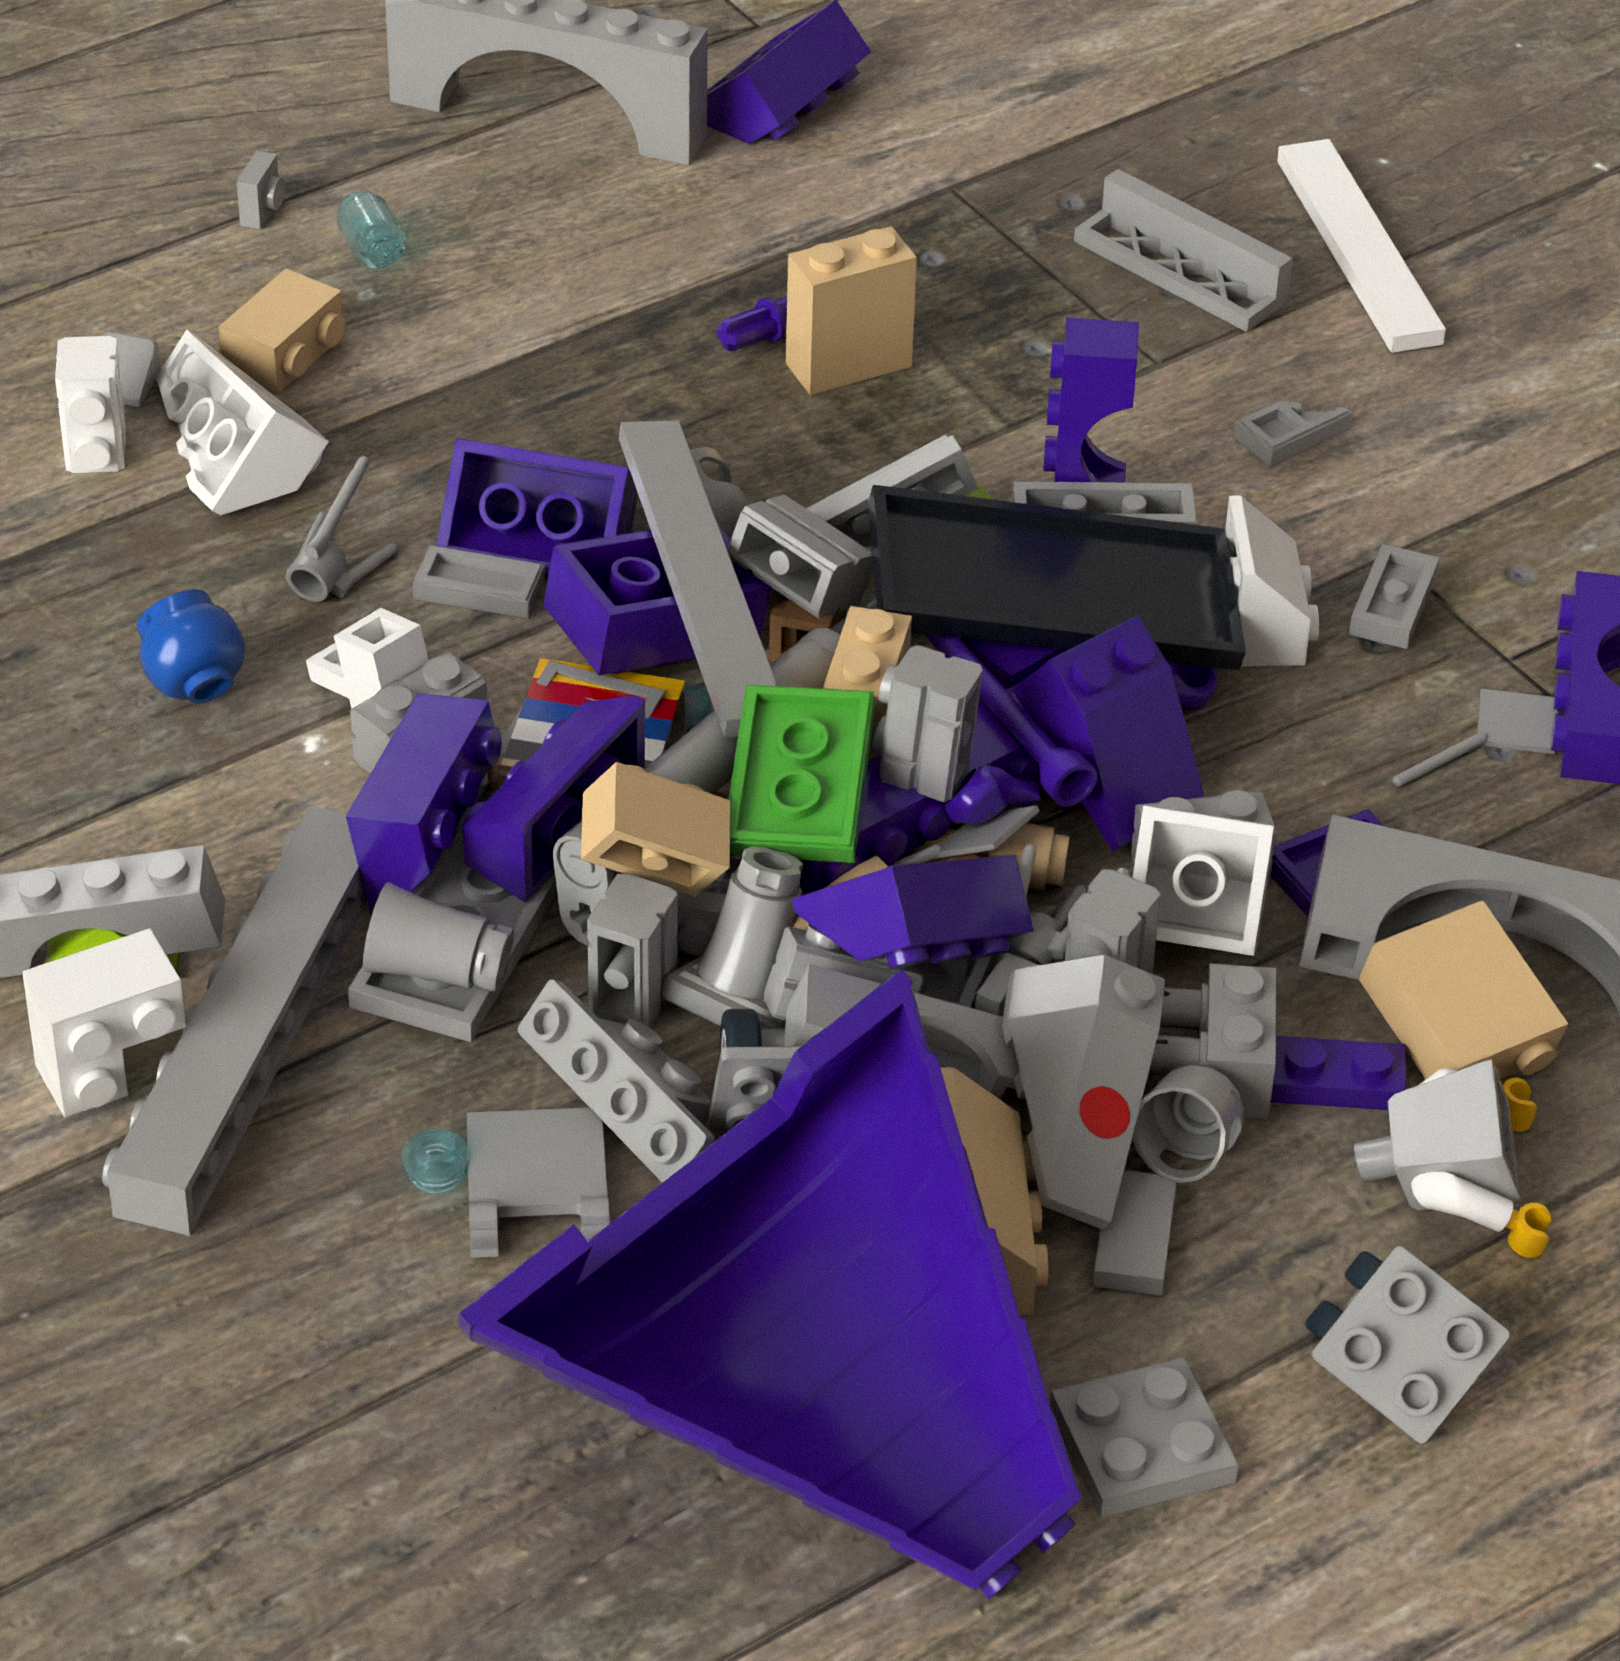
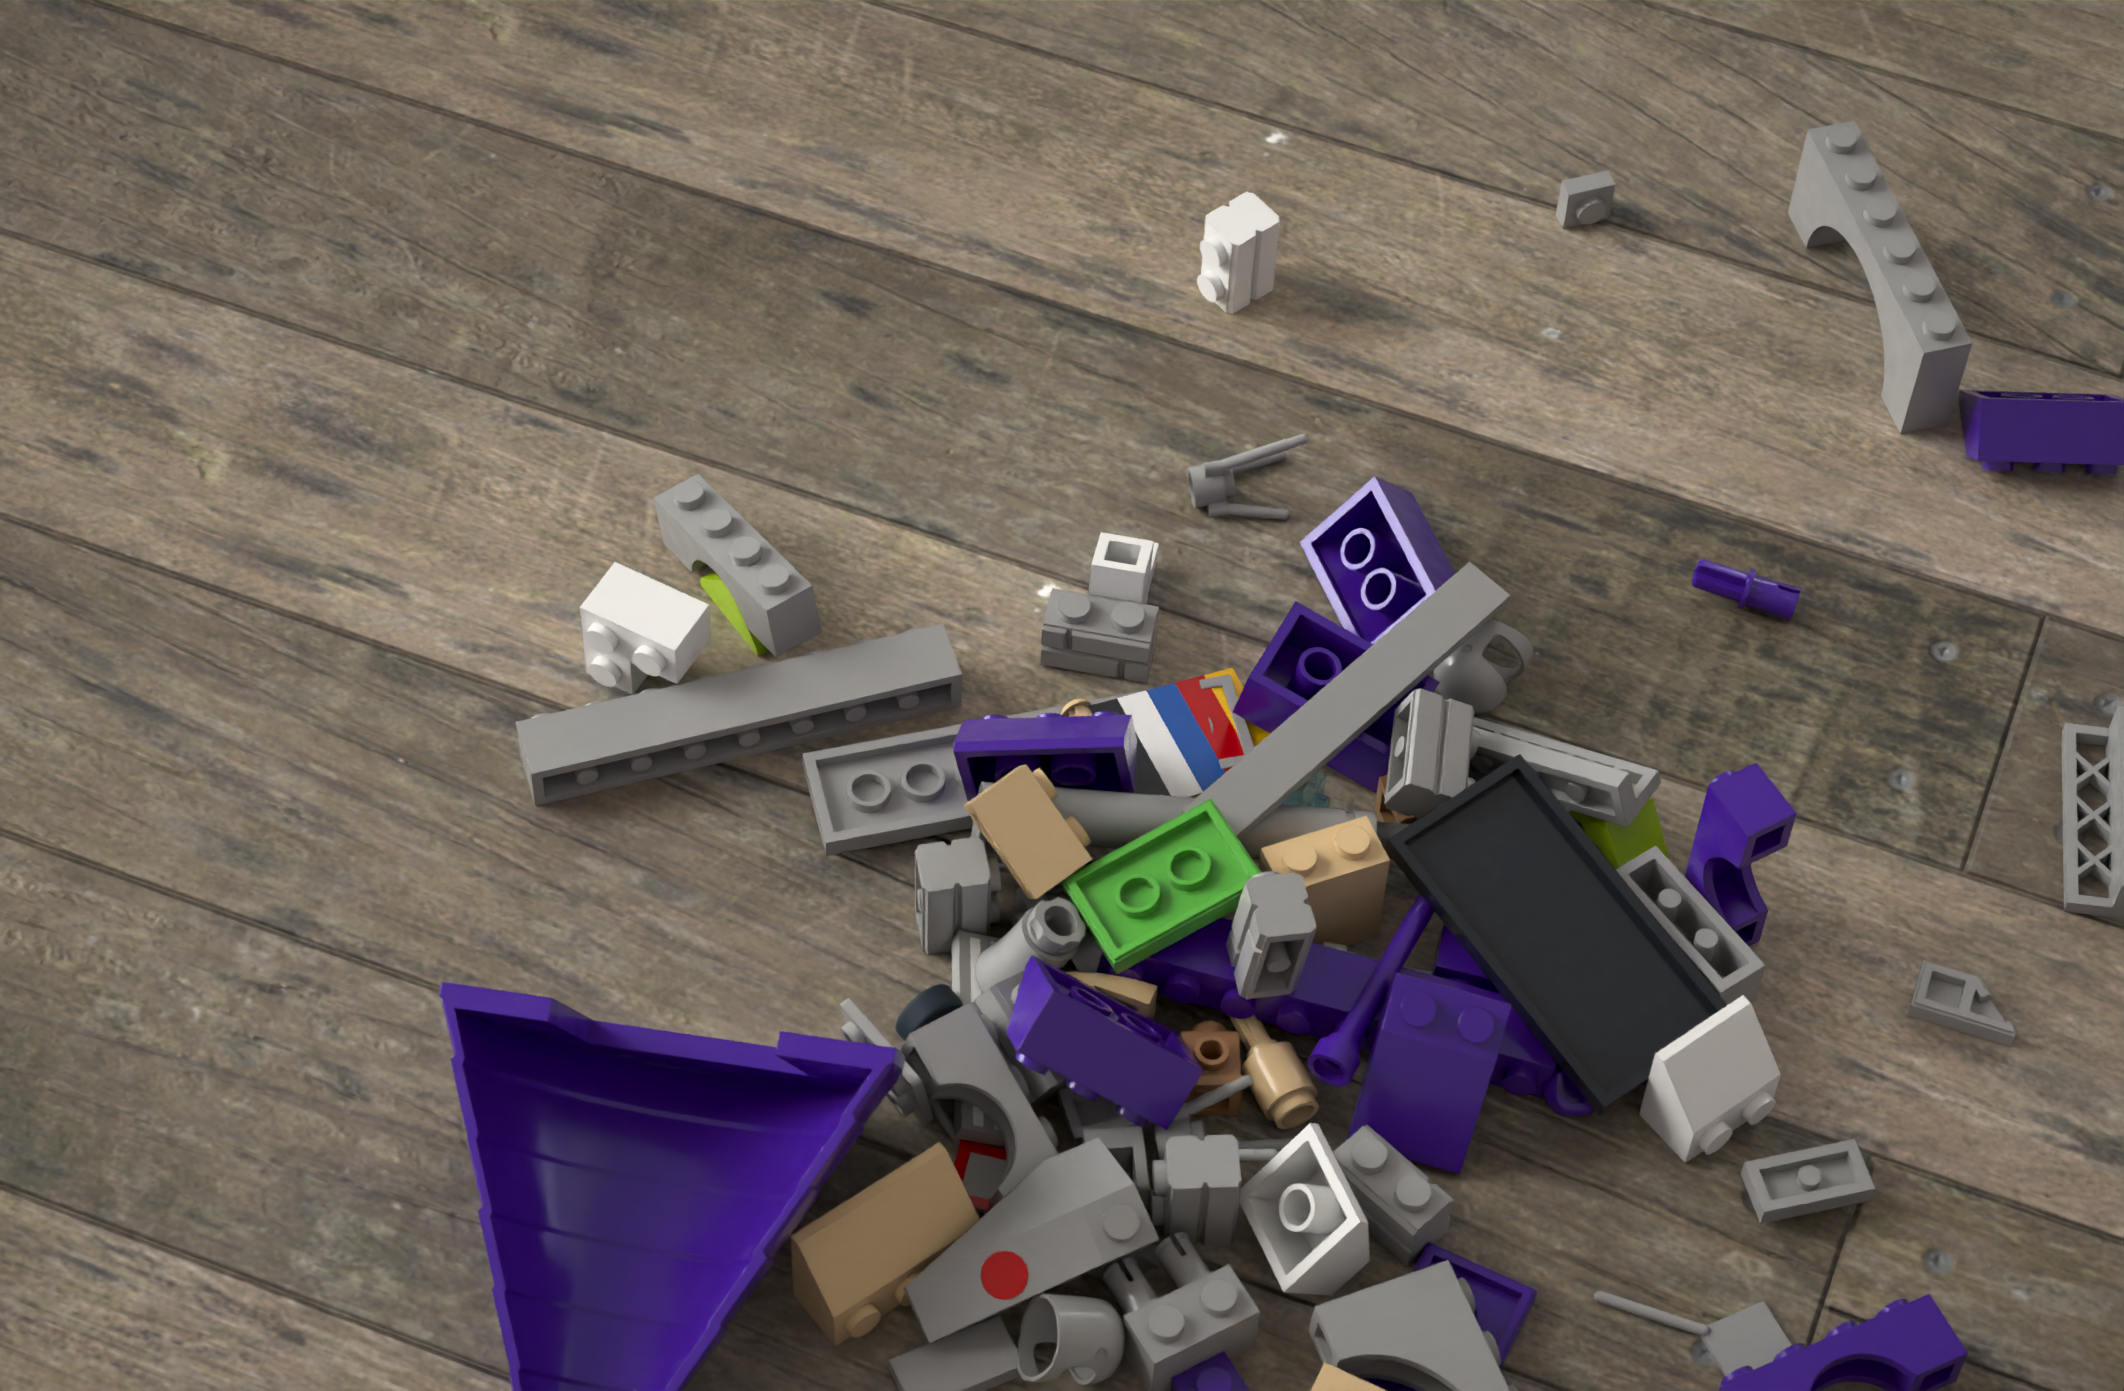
camera: 55 degrees right, 10 degrees up
(138, 366) = (1319, 249): light grey slope -> none
(190, 647) = (1051, 462): blue piece -> none
(233, 430) = (1311, 352): white wedge -> none
(283, 329) = (1442, 309): tan brick -> none
(371, 229) = (1607, 290): clear light blue brick -> none
(421, 790) = (992, 672): dark purple slope -> none
(435, 942) = (860, 771): light grey plant -> none
(435, 1160) = (696, 912): clear light blue plate -> none
(479, 581) = (1290, 576): light grey tile -> none
(534, 1167) = (731, 964): light grey flag -> none
(623, 1078) = (855, 959): light grey bracket -> none
(850, 310) = (1770, 630): tan brick -> none
(975, 838) = (1235, 1039): light grey piece -> none
(987, 793) = (1279, 1020): dark purple animal -> none

